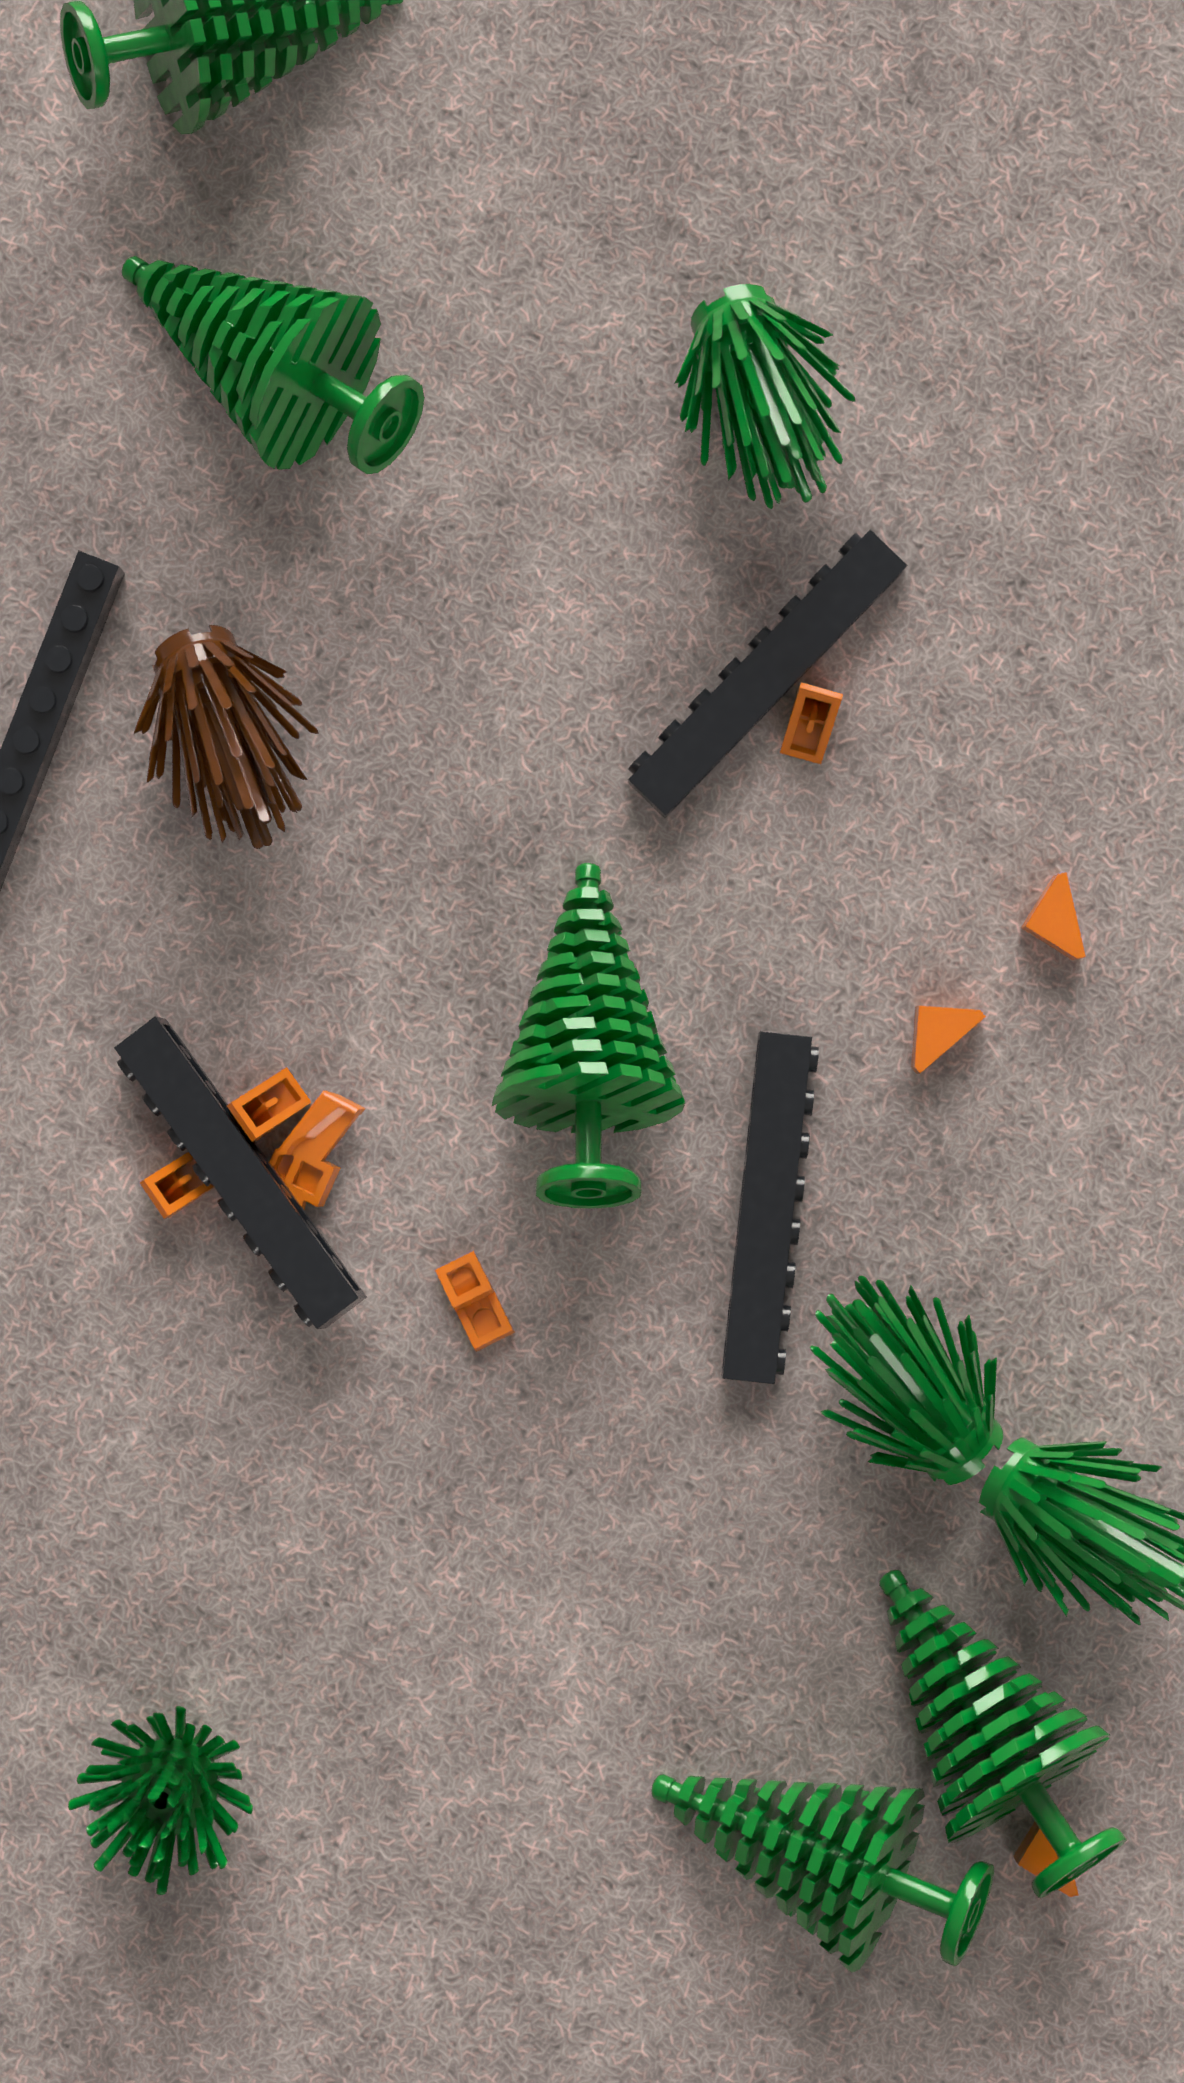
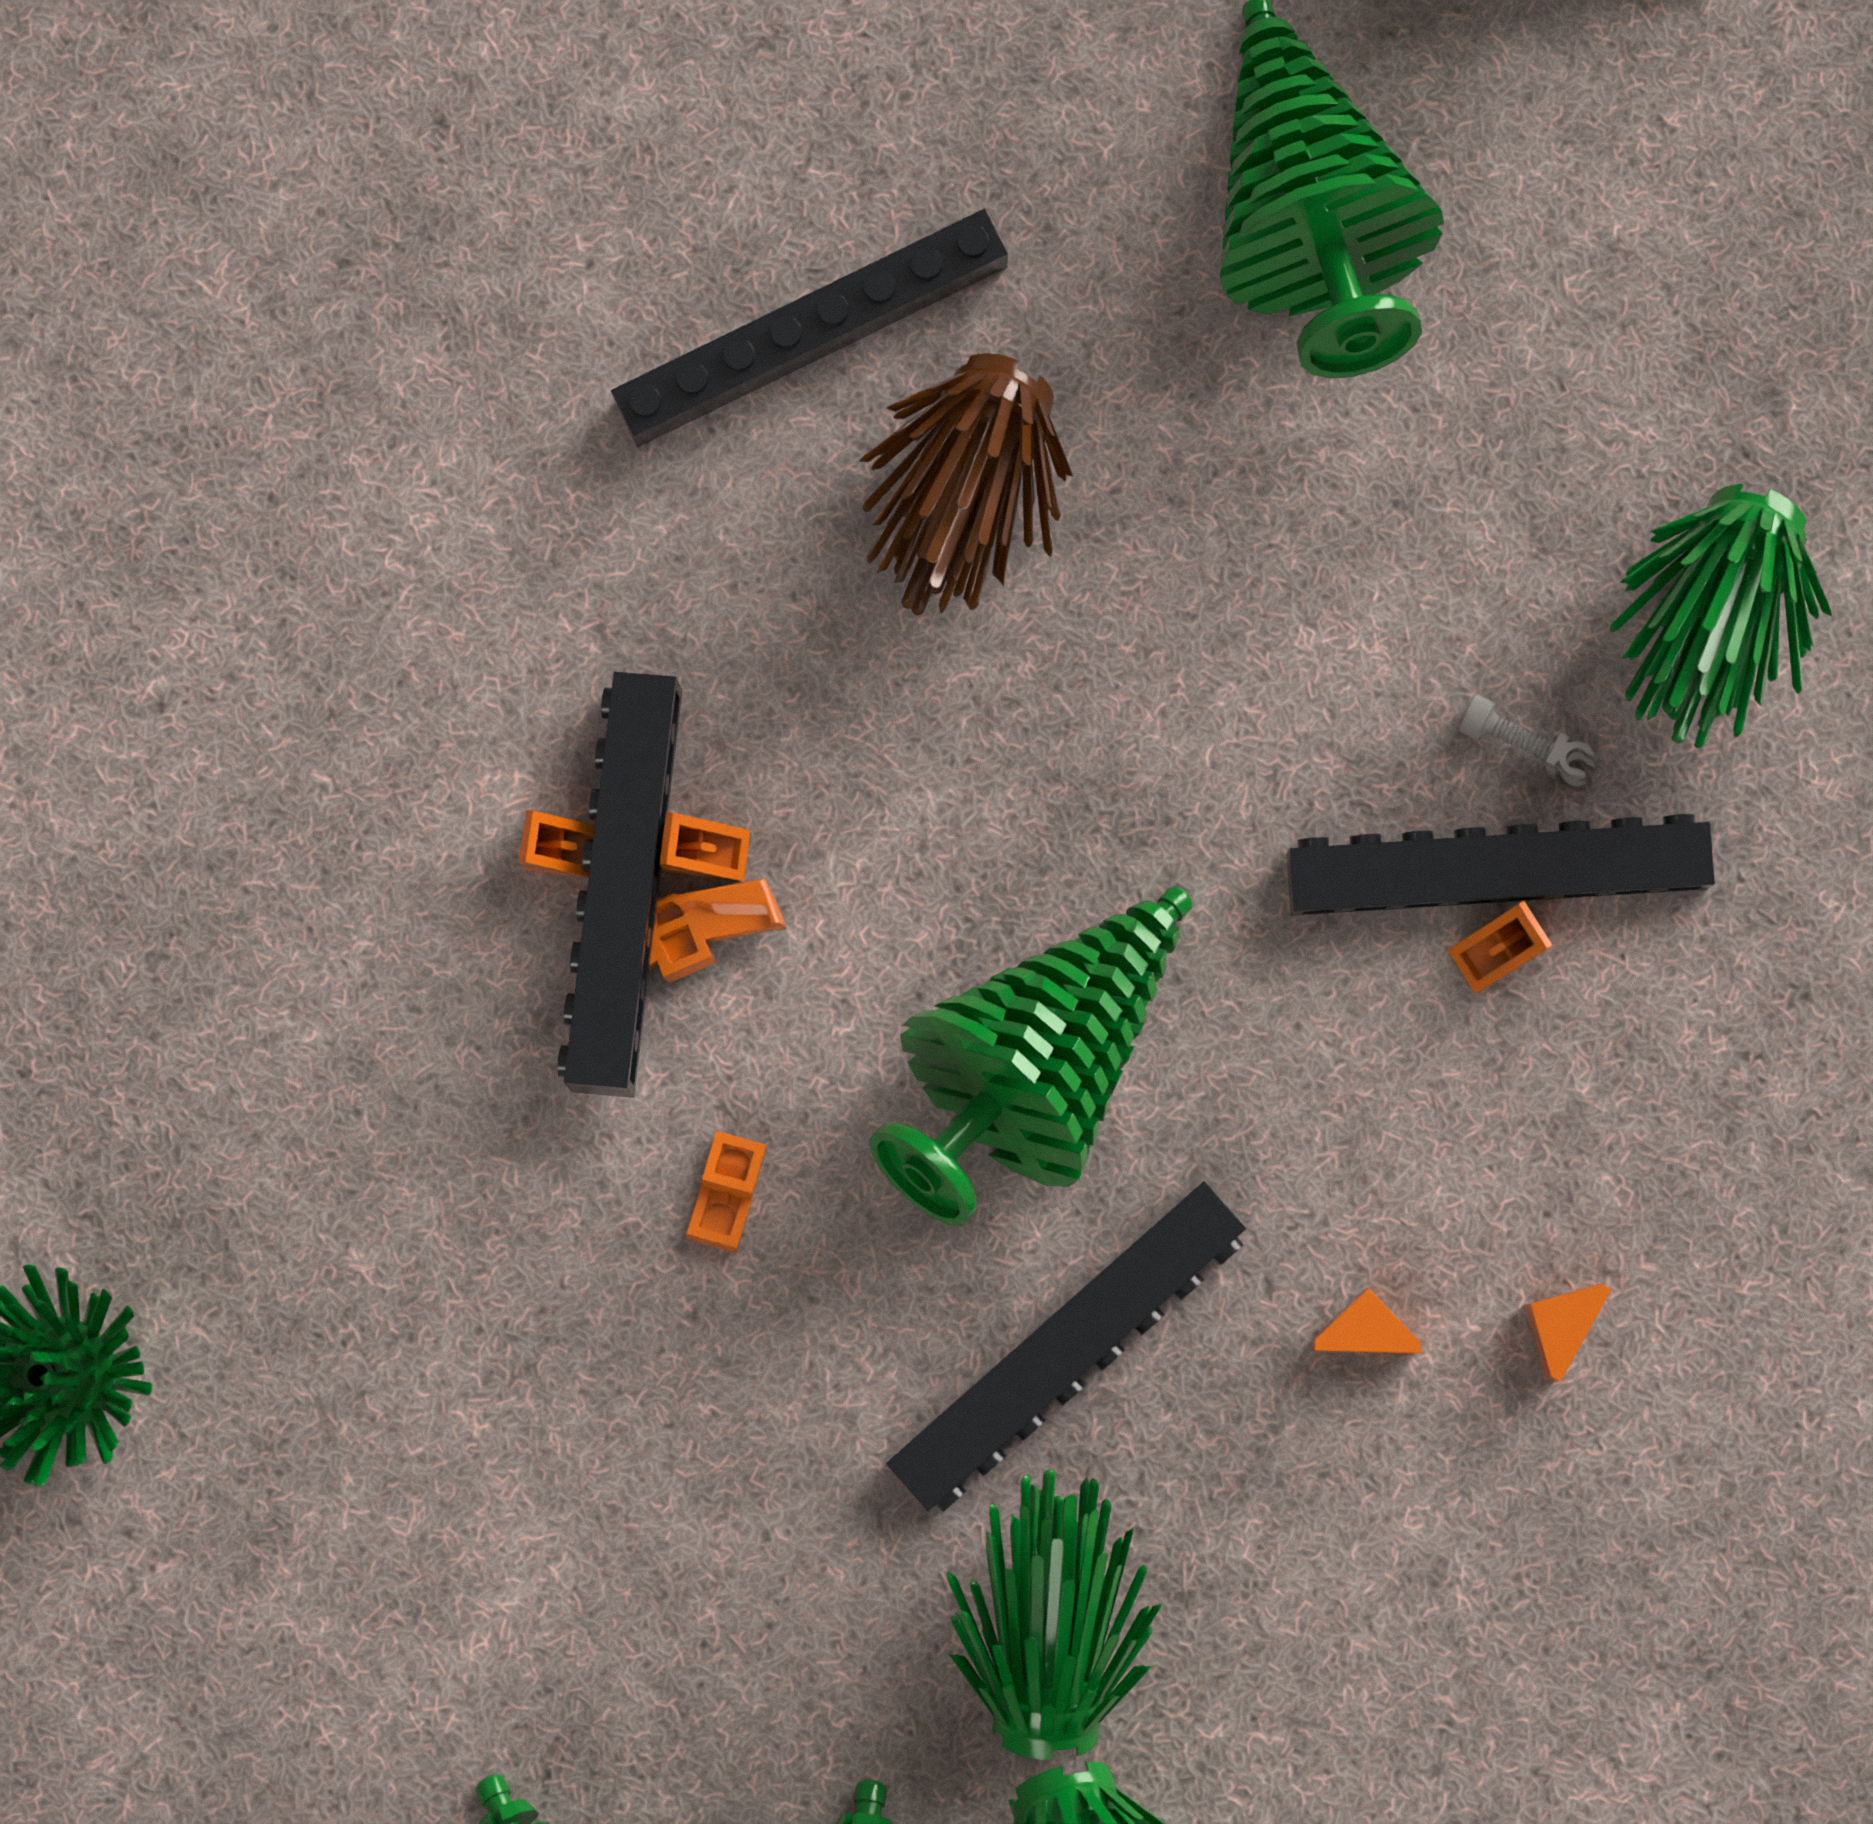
camera: 45 degrees right, 5 degrees down
(674, 590) = (1483, 720): none -> light grey bar

